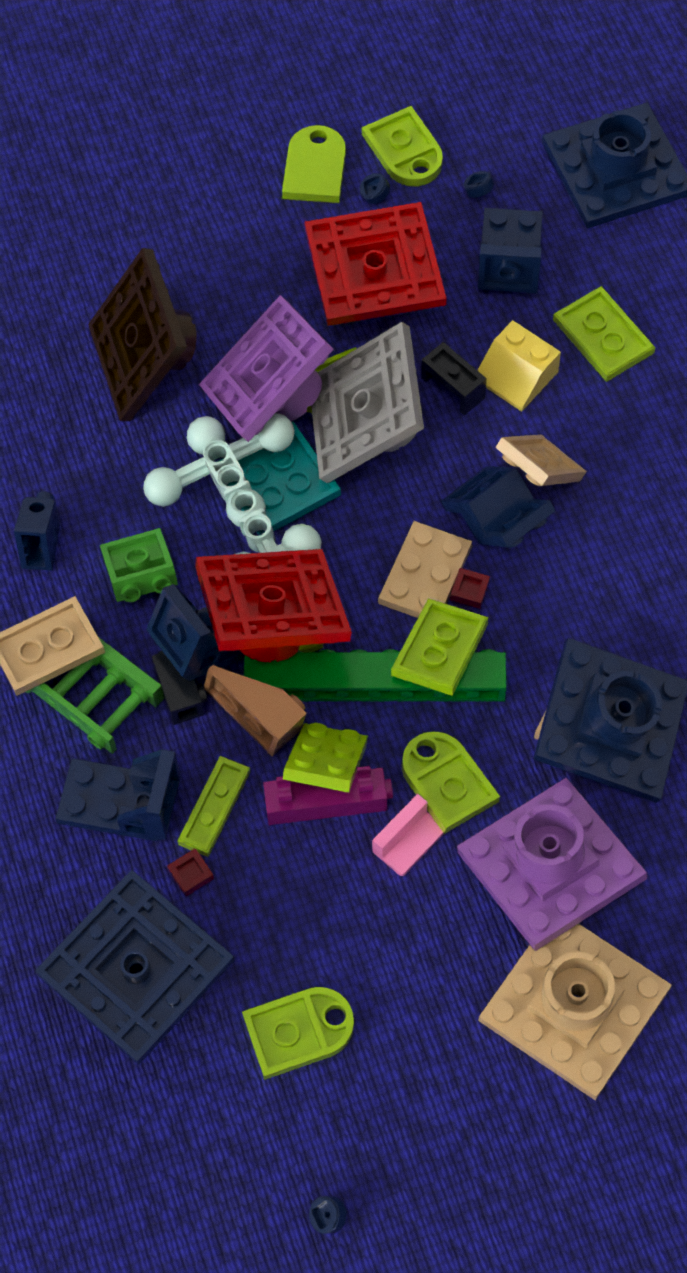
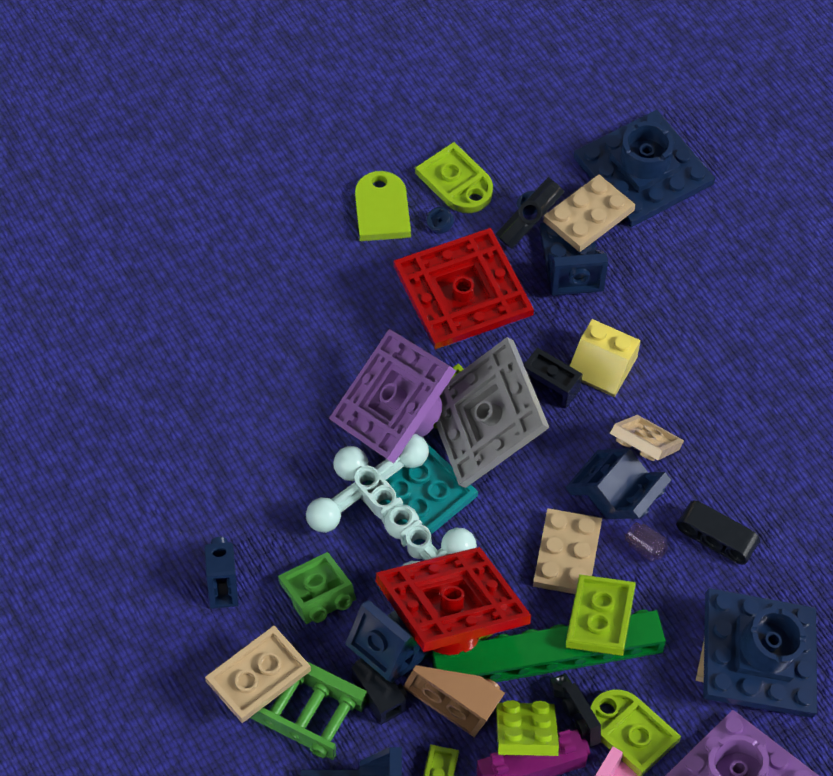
camera: 15 degrees left, 5 degrees down
(140, 335) = (271, 384): dark brown piece -> none
(389, 742) = (577, 707): none -> black hinge
(470, 588) = (610, 559): dark red plate -> none
(488, 180) = (518, 225): none -> black piece
(515, 575) = (646, 541): none -> clear purple brick
(540, 204) = (589, 213): none -> tan plate
(599, 578) = (718, 532): none -> black beam
(603, 333) = (668, 317): lime tile -> none

